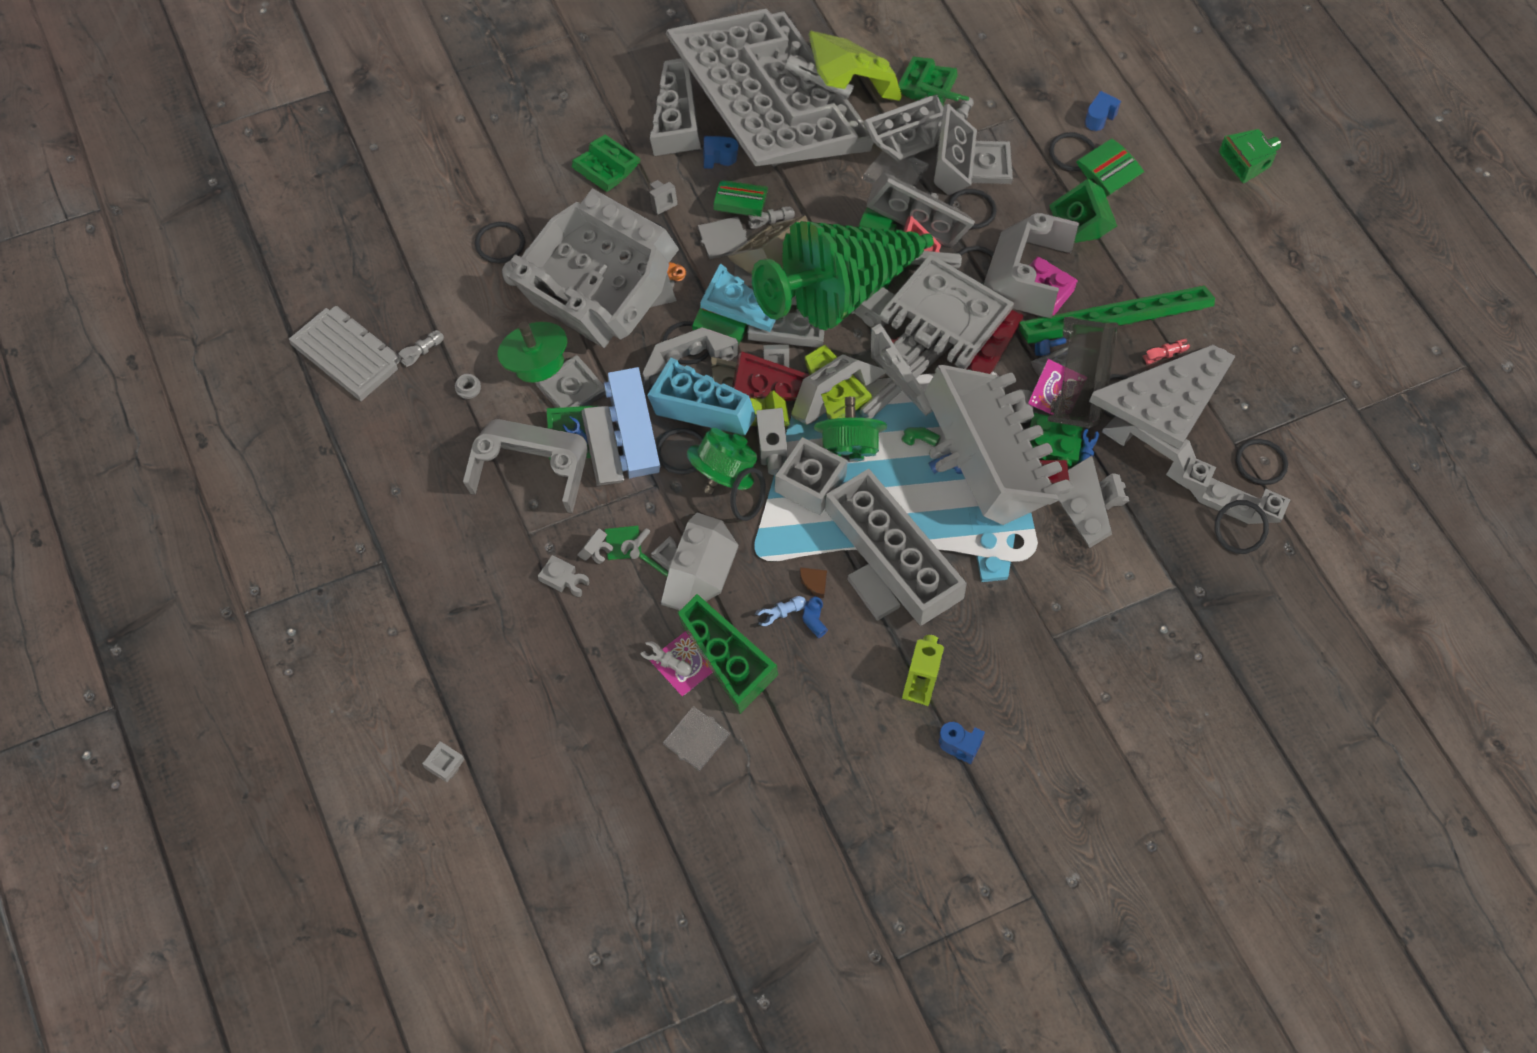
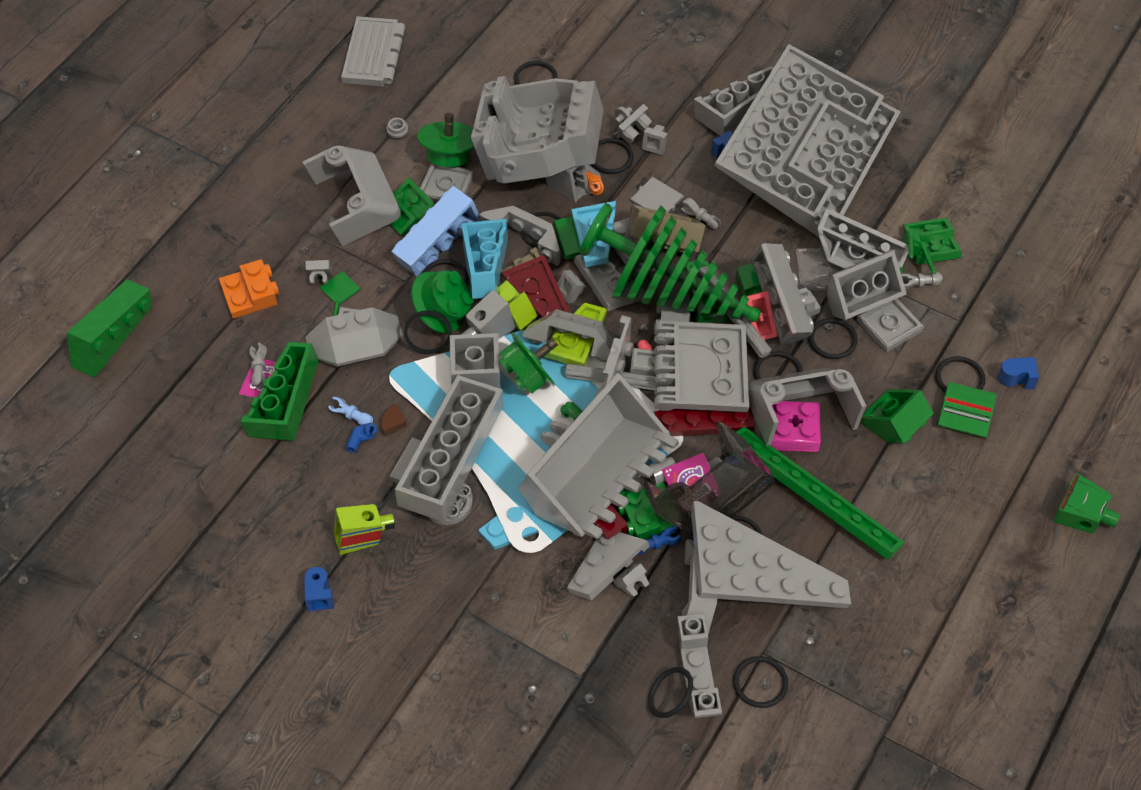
camera: 60 degrees right, 5 degrees down
(412, 353) = (408, 86): light grey piece -> none
(443, 762) = (86, 283): light grey tile -> none
(520, 768) = (106, 327): none -> green wedge
(561, 574) = (284, 267): light grey plate -> none
(565, 619) = (249, 289): none -> orange plate
(577, 430) = (400, 199): blue hand -> none
(602, 445) = (401, 225): light grey tile -> none
(605, 163) = (659, 94): green slope -> none
(628, 195) = (626, 129): none -> light grey hips
(630, 544) = (334, 294): light grey hand -> none
(696, 738) = (209, 420): clear piece -> none
(740, 198) = (698, 185): green slope -> none
(793, 64) = (845, 153): light grey pin -> none
(840, 59) = (890, 173): lime wedge -> none
(1165, 351) = (801, 543): coral piece -> none

